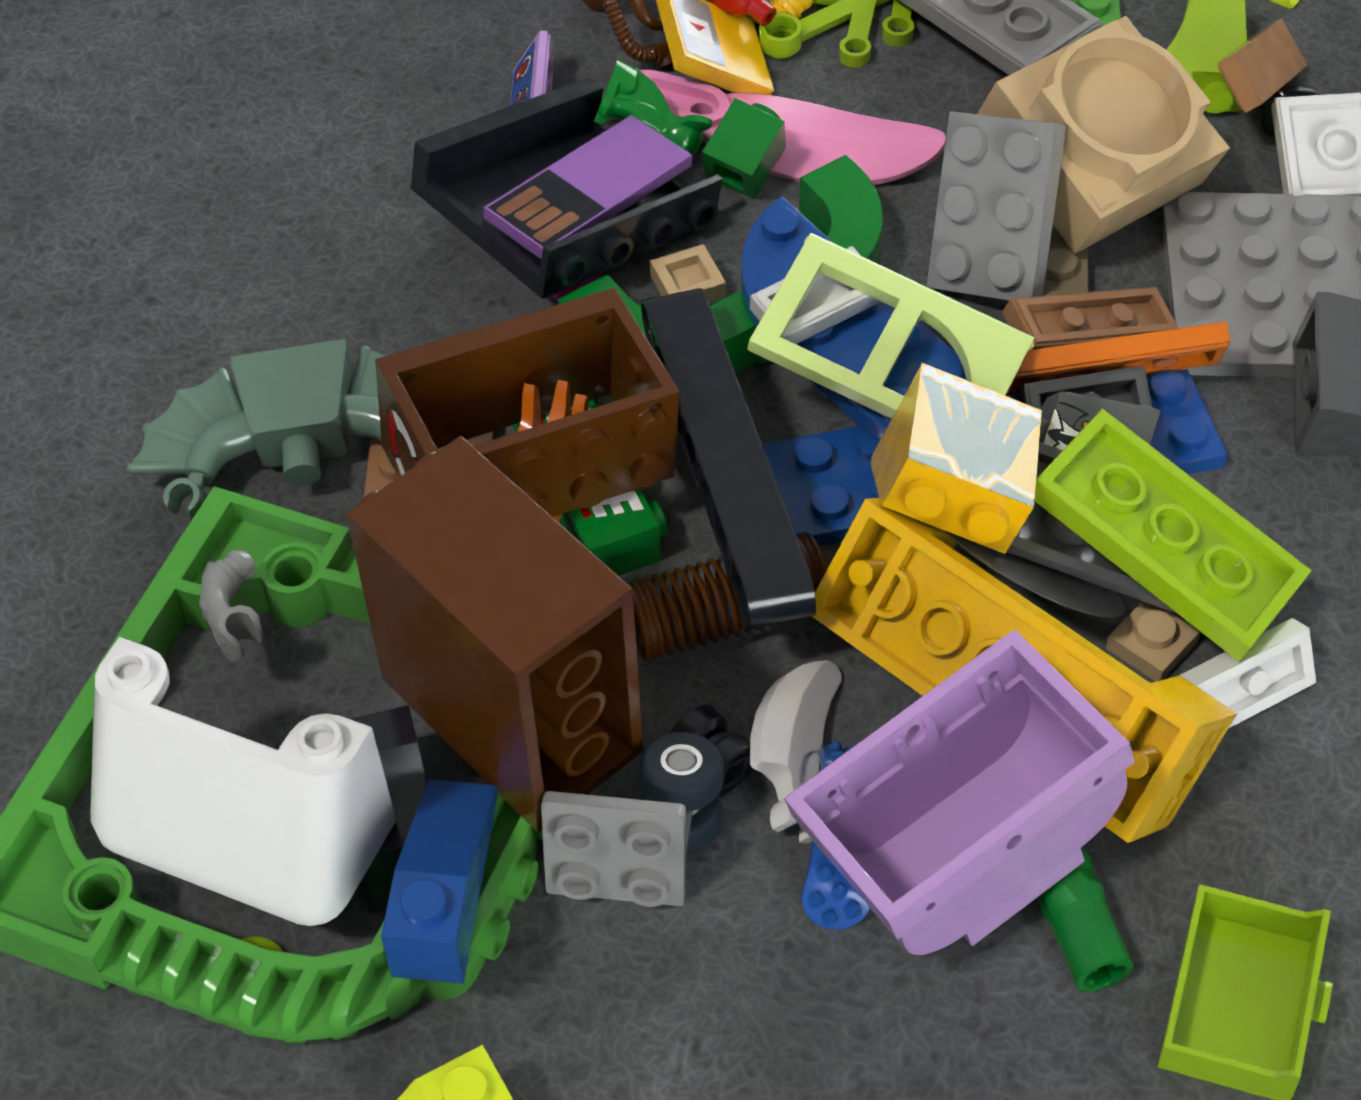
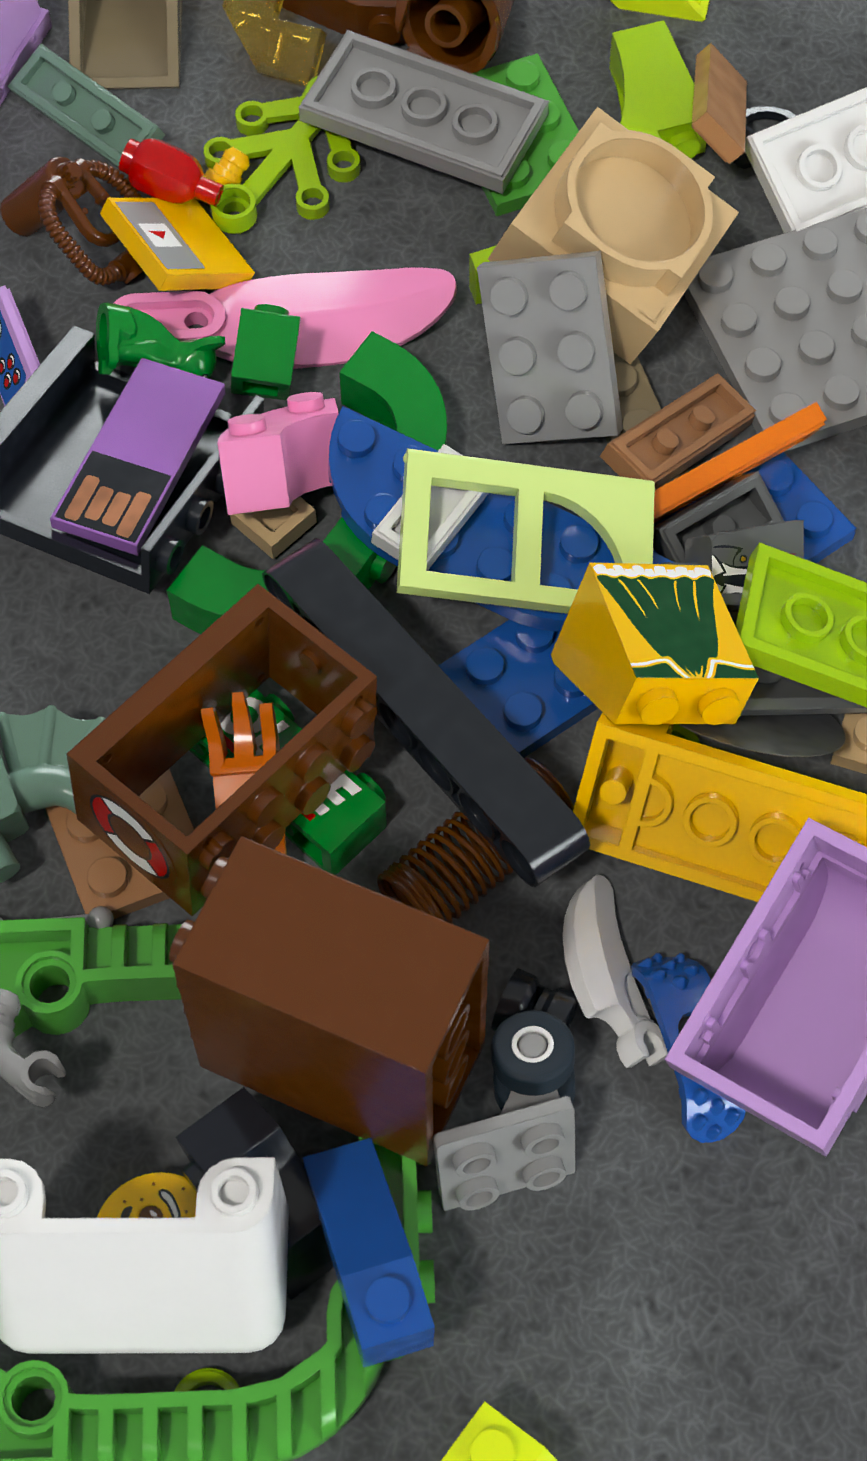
camera: 25 degrees left, 10 degrees up
(701, 221) = (277, 453): none -> bright pink brick

